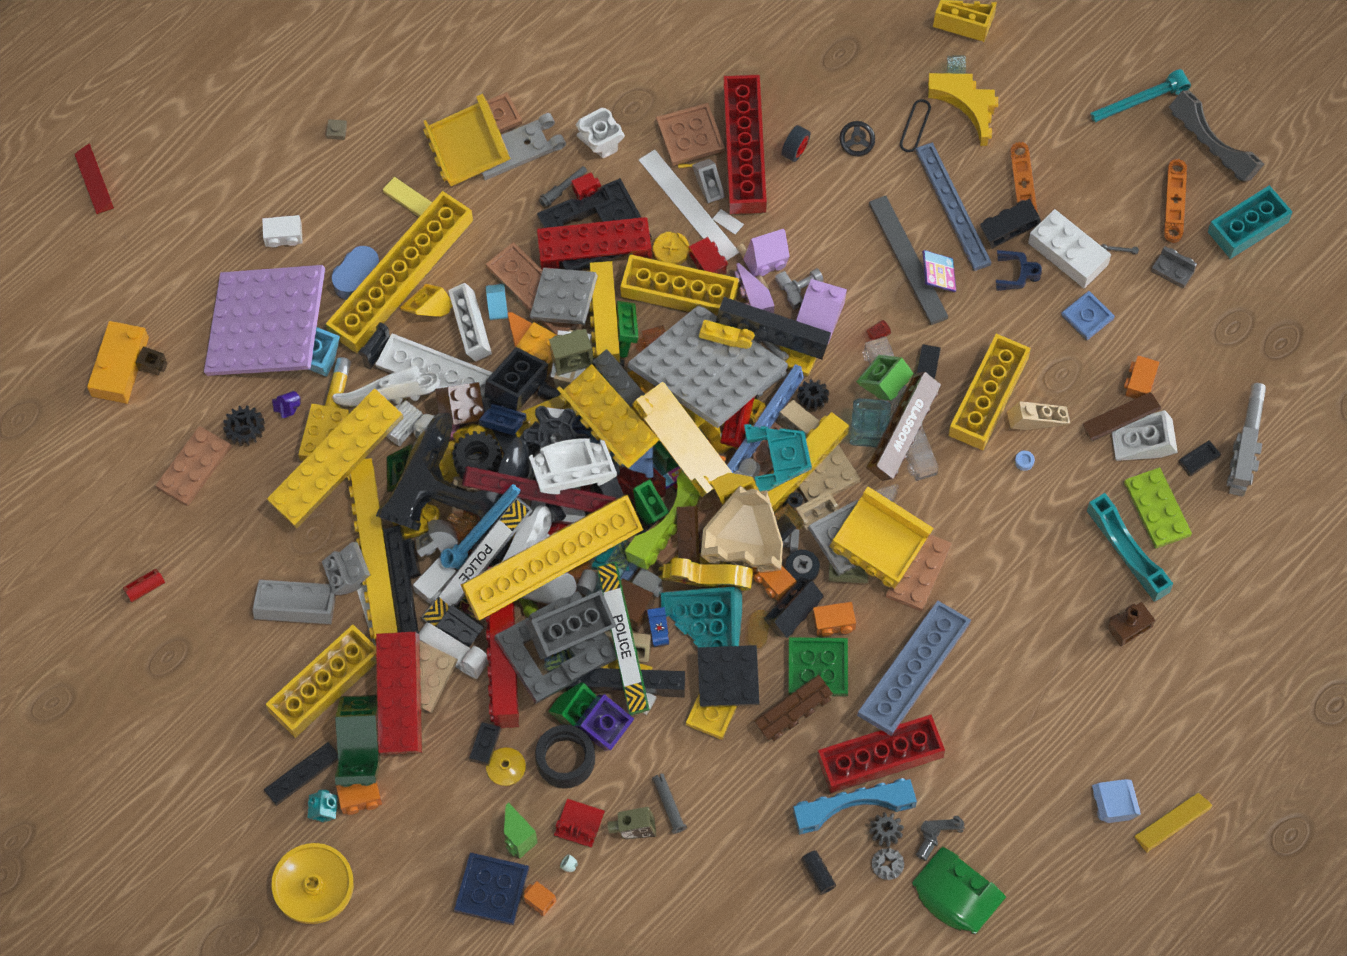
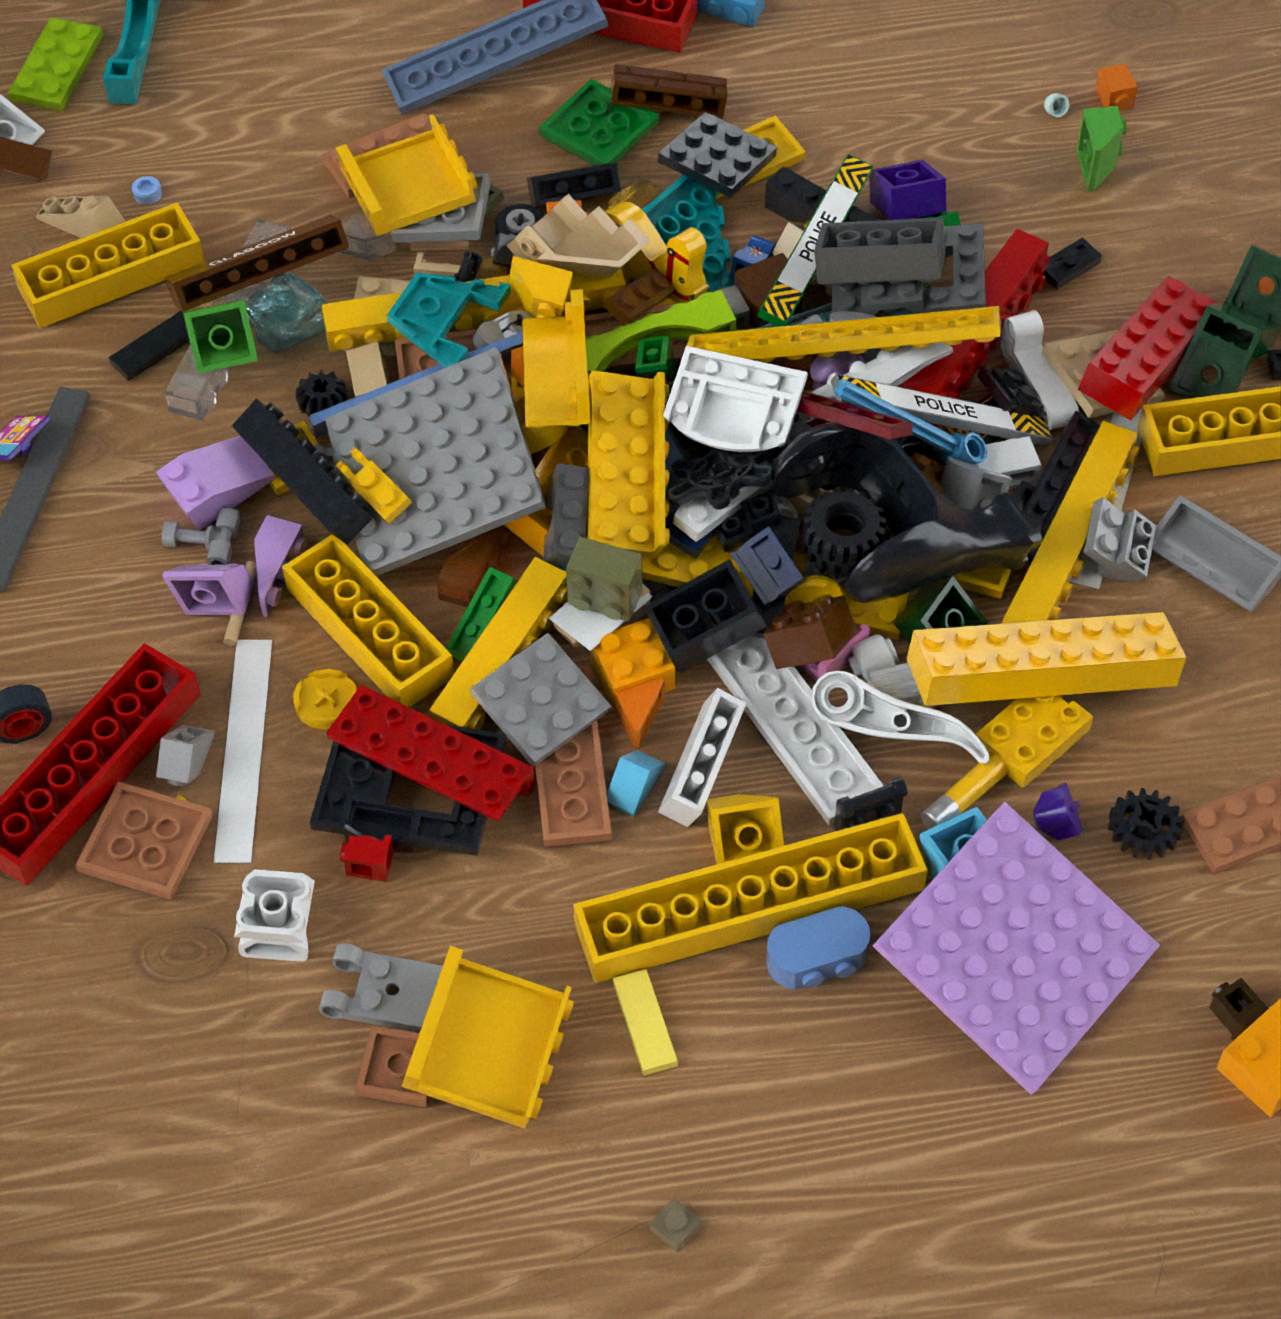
camera: 145 degrees left, 10 degrees down
(282, 231) = (889, 1092): white brick -> none
(491, 888) = (1170, 127): dark blue plate -> none
(506, 775) = (1058, 231): yellow dish -> none
(546, 199) = (433, 881): dark grey pin -> none
(558, 734) = (992, 169): black tyre -> none
(579, 823) = (1012, 133): red hinge -> none
(634, 824) = (950, 87): olive torso -> none
(669, 804) = (898, 71): dark grey pin -> none
(707, 258) = (291, 643): red brick -> none
(728, 221) = (212, 691): white sticker -> none
(834, 619) = (534, 153): orange brick -> none
(878, 330) = (164, 419): clear red piece -> none

